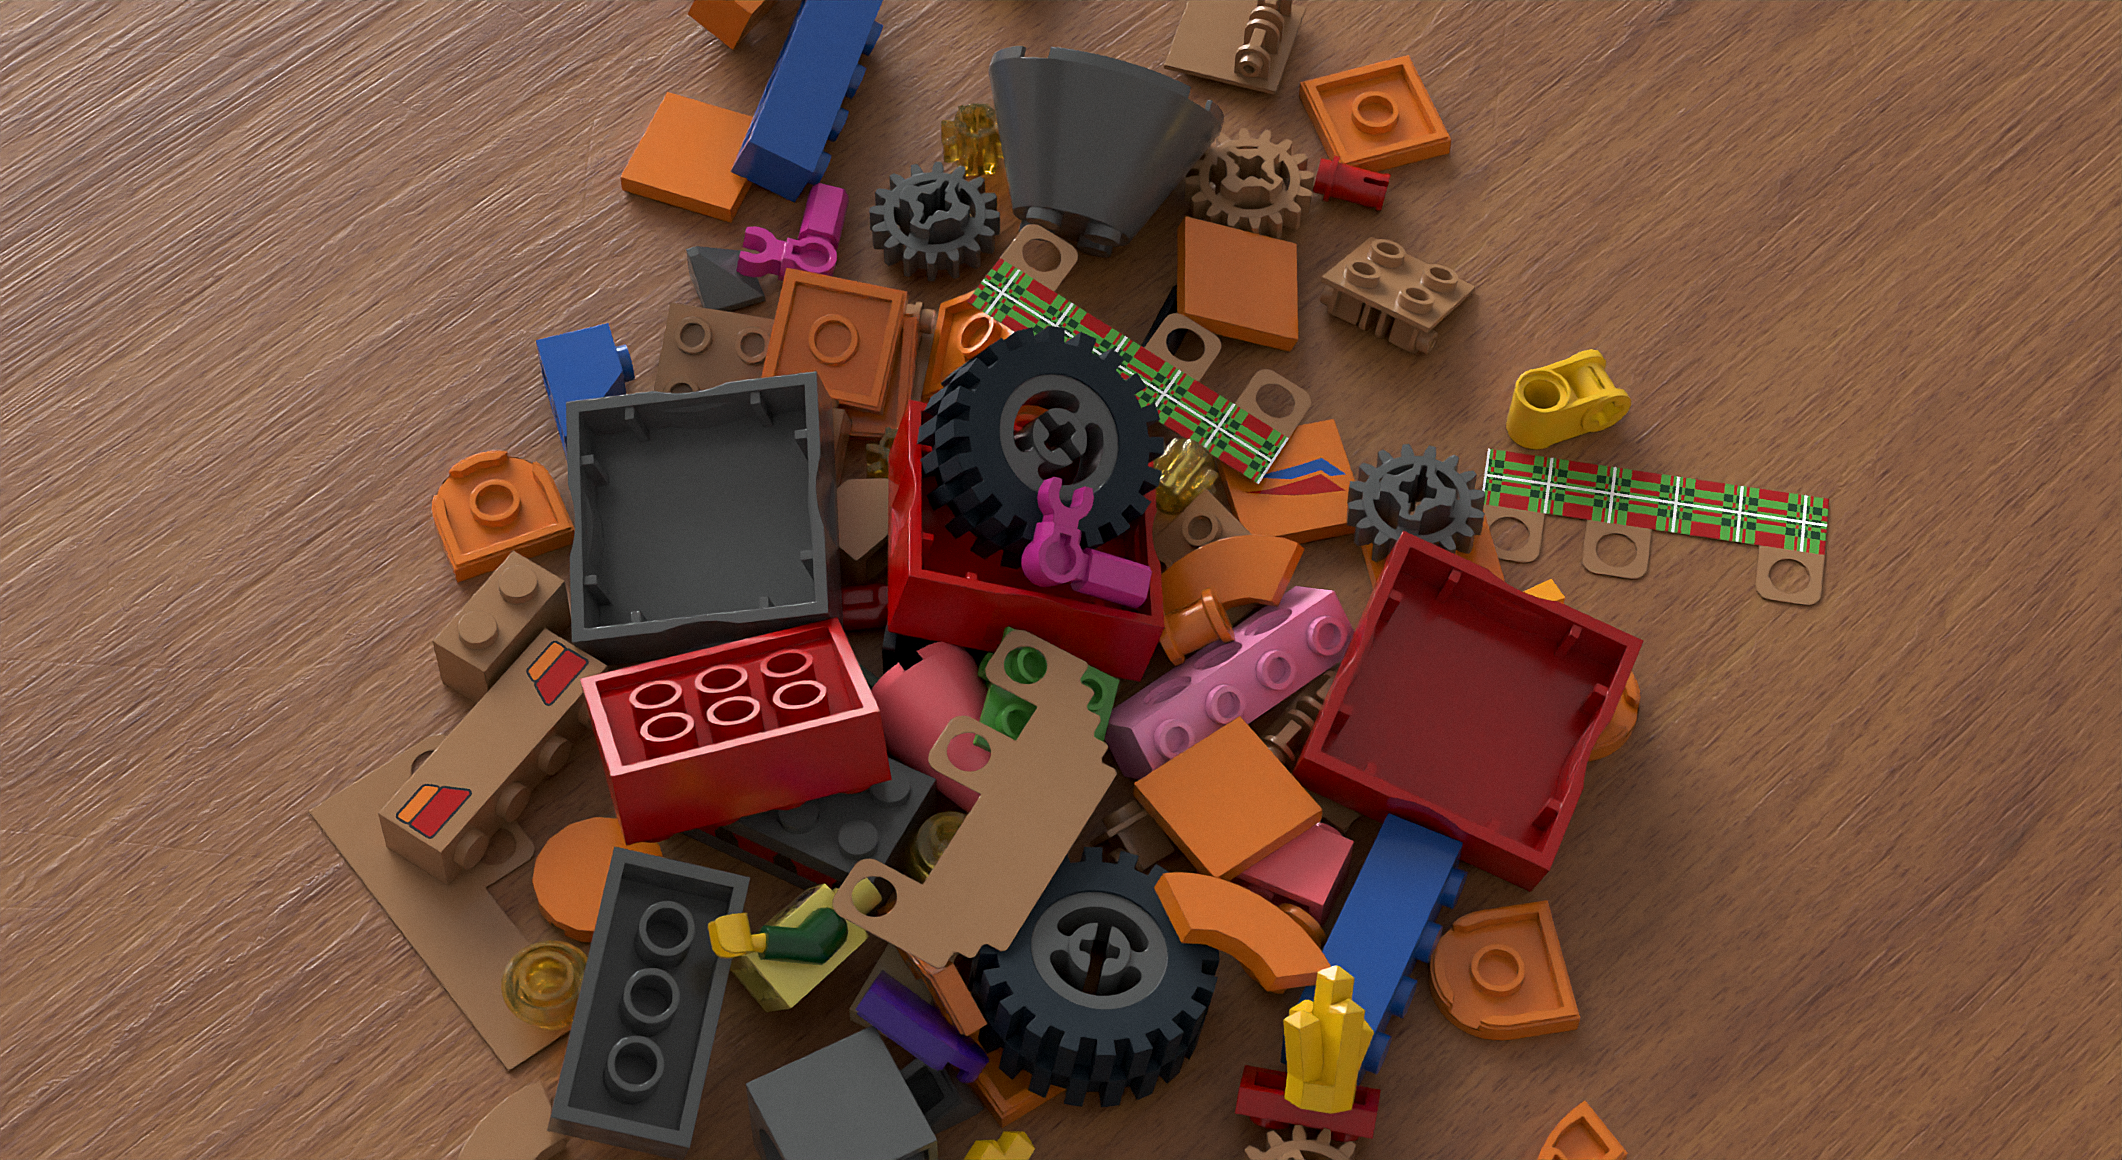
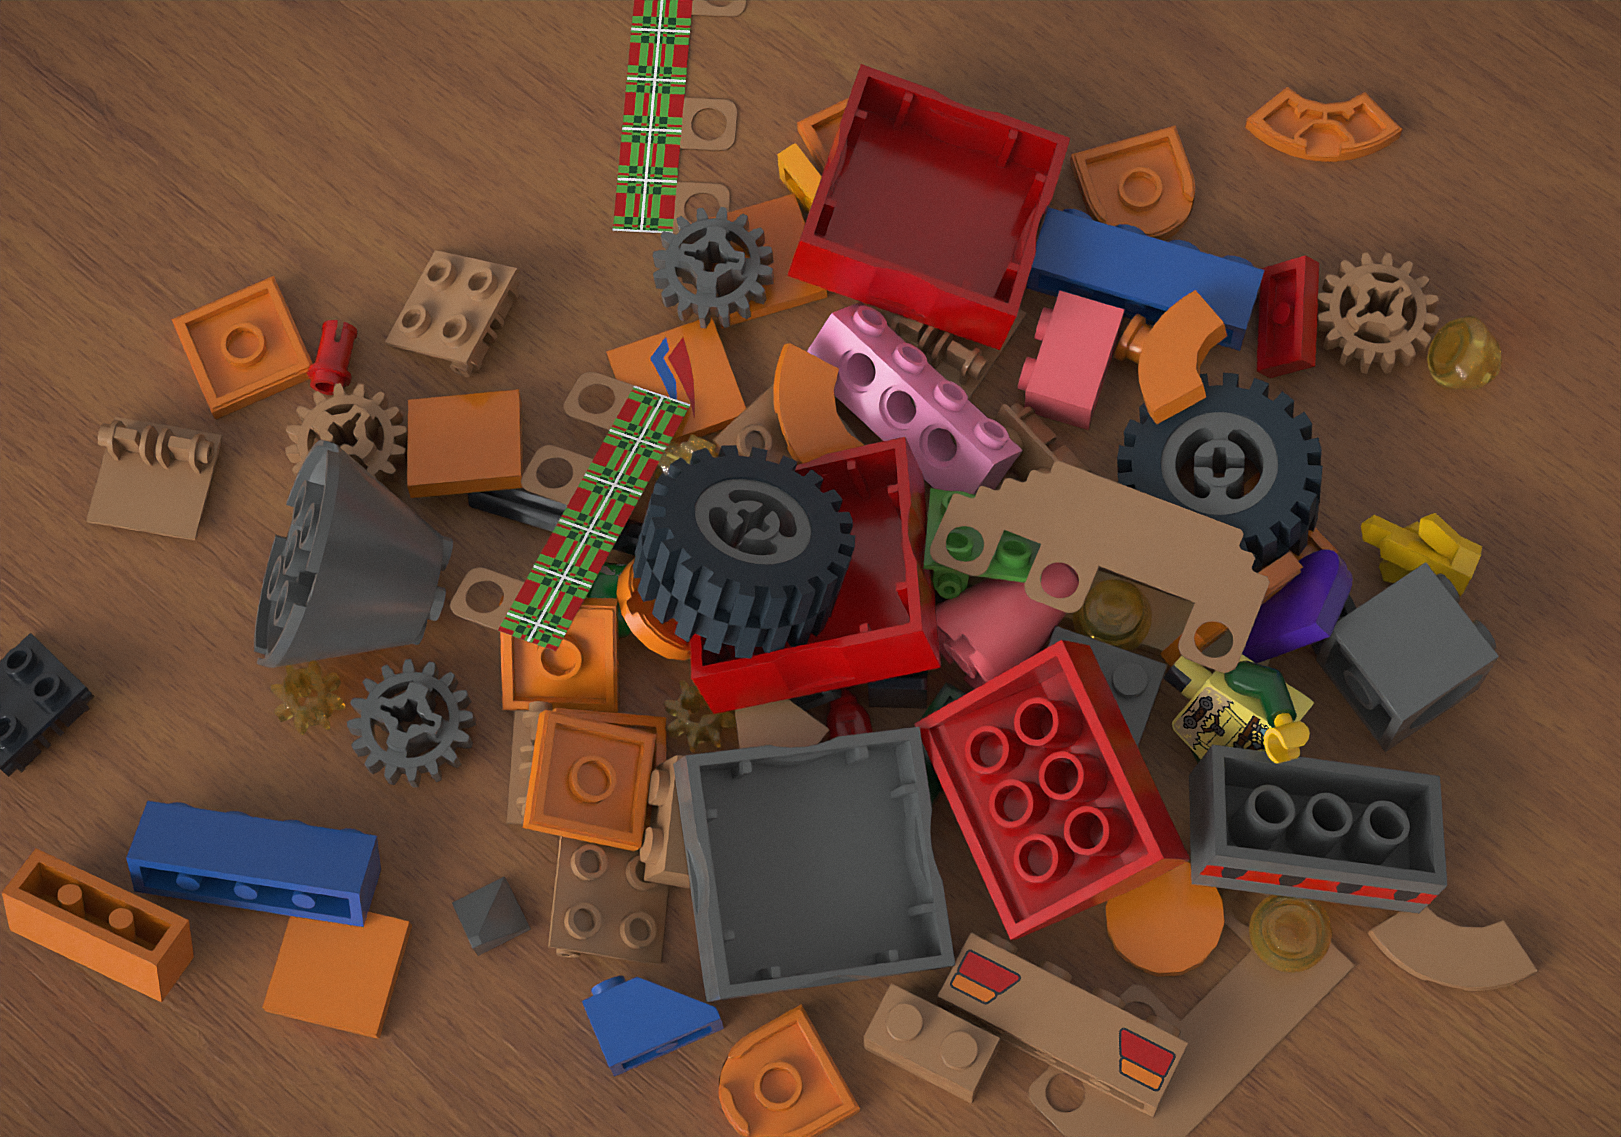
camera: 90 degrees left, 15 degrees up
(815, 244) = (465, 832): dark pink bar -> none
(1058, 557) = (869, 511): dark pink bar -> none
(1195, 627) = (866, 423): orange bush -> none
(1227, 801) = (1045, 387): orange tile -> none
(1326, 1045) = (1276, 289): yellow rock -> none
(1564, 401) = (565, 156): yellow piece -> none

